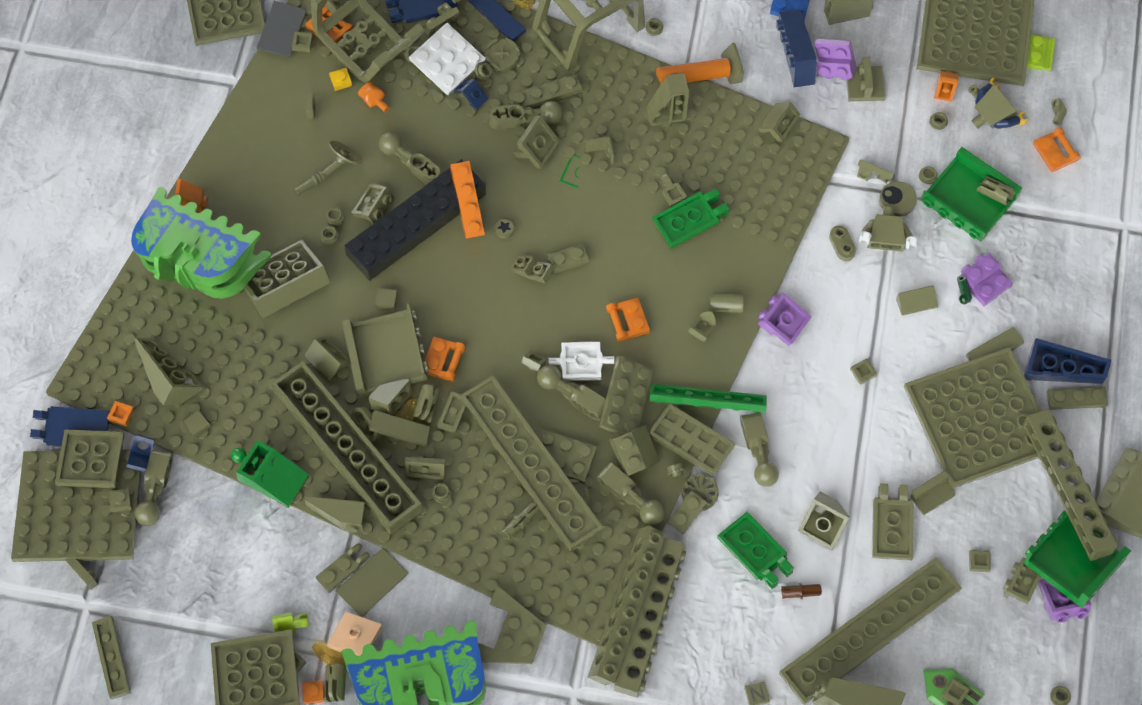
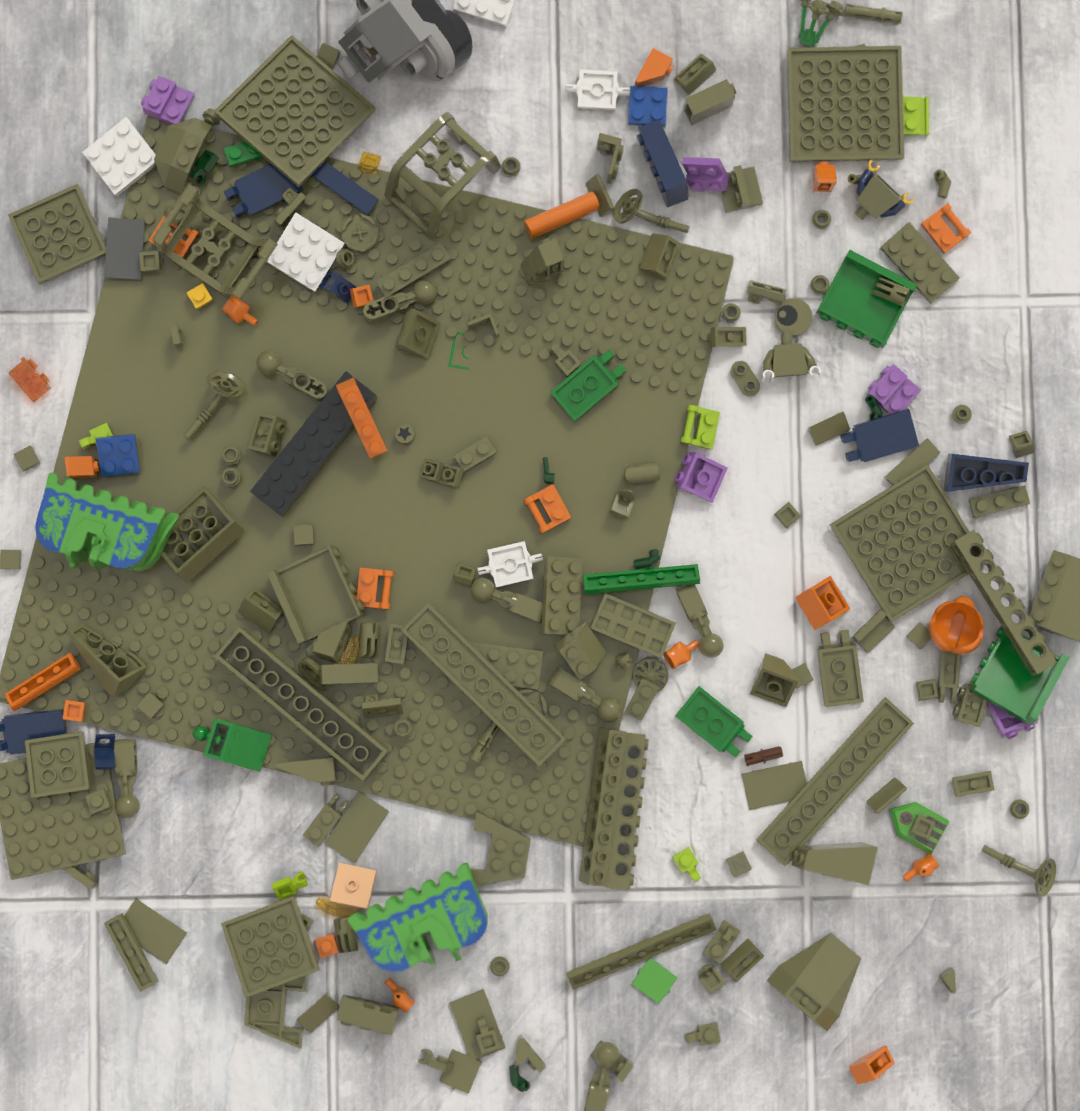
camera: 10 degrees left, 20 degrees up
(97, 381) = (42, 681): none -> orange brick
(99, 271) = (10, 559): none -> olive tile
(140, 187) = (26, 458): none -> olive tile
(140, 644) = (154, 931): none -> olive window
(163, 121) = (29, 379): none -> clear orange bracket
(215, 178) = (100, 431): none -> lime plate
(228, 195) = (118, 455): none -> blue plate
(490, 101) = (361, 295): none -> orange plate
(635, 291) = (548, 477): none -> dark green hand
(703, 681) = (686, 861): none -> lime plate
(724, 381) = (648, 561): none -> dark green arm
(733, 477) = (680, 653): none -> orange piece
(750, 24) = (607, 146): none -> olive bracket
(759, 77) = (634, 210): none -> olive dish
(796, 278) = (705, 428): none -> lime plate
(806, 623) = (773, 784): none -> olive window
(832, 201) = (727, 336): none -> olive hinge
(841, 180) = (733, 307): none -> olive plate
(855, 523) = (803, 674): none -> olive tile
(885, 456) = (822, 603): none -> orange slope
(922, 655) = (886, 795): none -> olive slope
(968, 316) = (881, 436): none -> dark blue tile
(979, 507) = (919, 635): none -> olive tile
(1004, 548) = (948, 675): none -> olive hinge
(1014, 660) = (973, 783): none -> olive plate
(1018, 499) = (957, 626): none -> orange piece
(1026, 170) = (919, 262): none -> olive plate
(1050, 316) = (961, 420): none -> olive plate
(1107, 349) = (1021, 444): none -> olive slope

